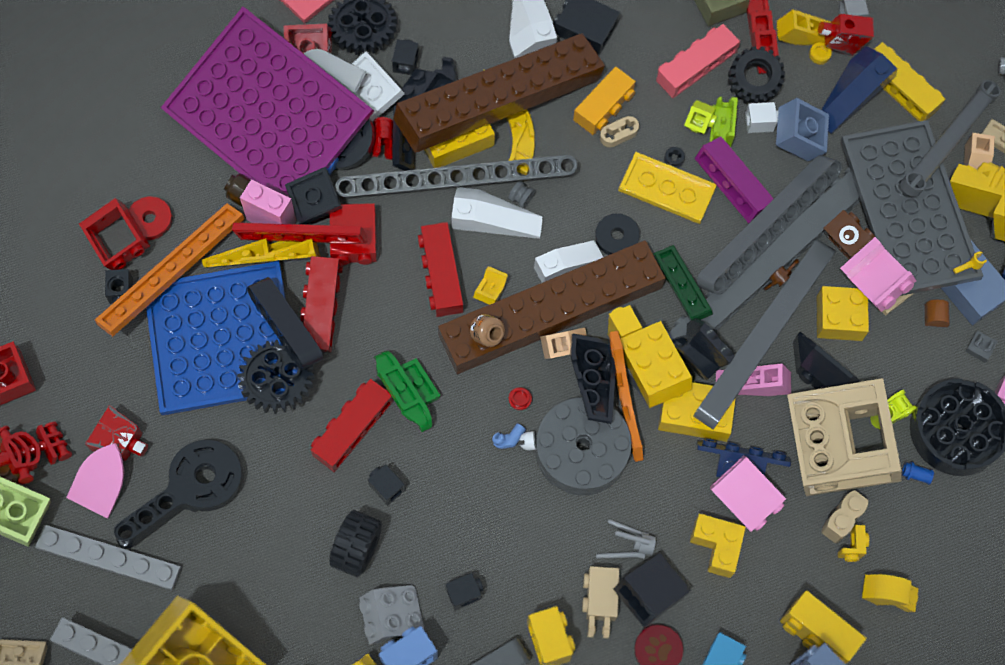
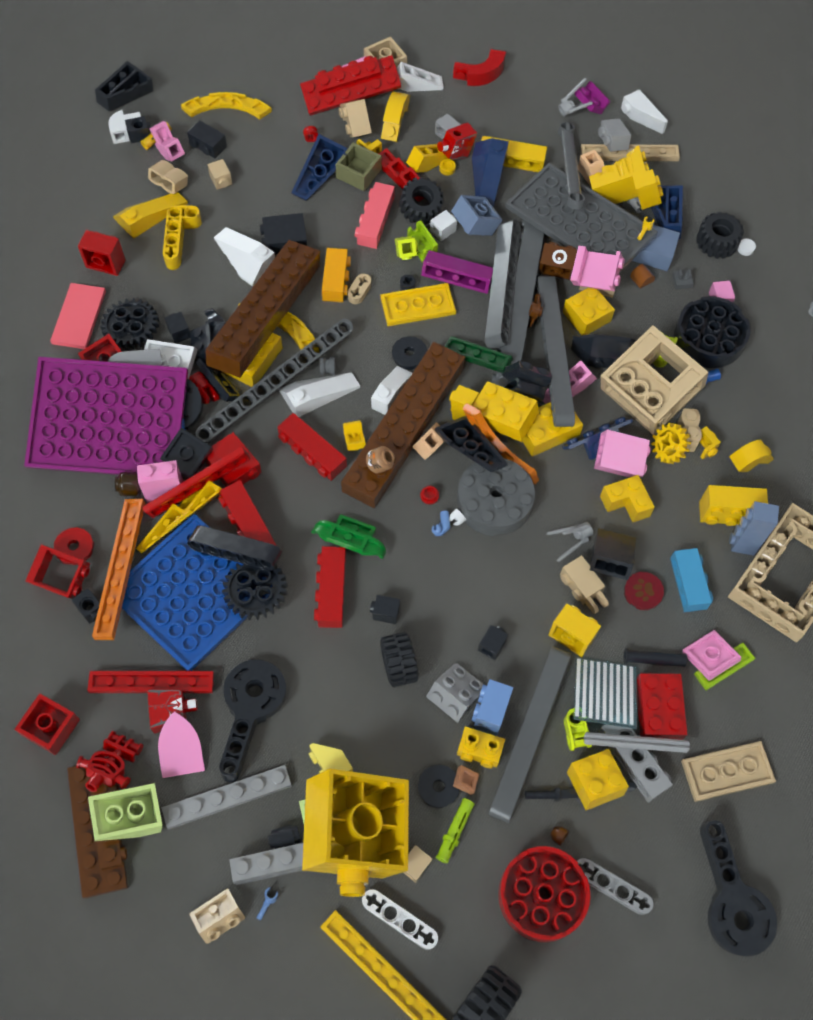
camera: 35 degrees left, 5 degrees down
(121, 399) = (144, 680): none -> red plate
(126, 633) = (284, 837): none -> black brick
(222, 597) = (329, 758): none -> light yellow slope
(810, 517) = (671, 443): none -> yellow gear

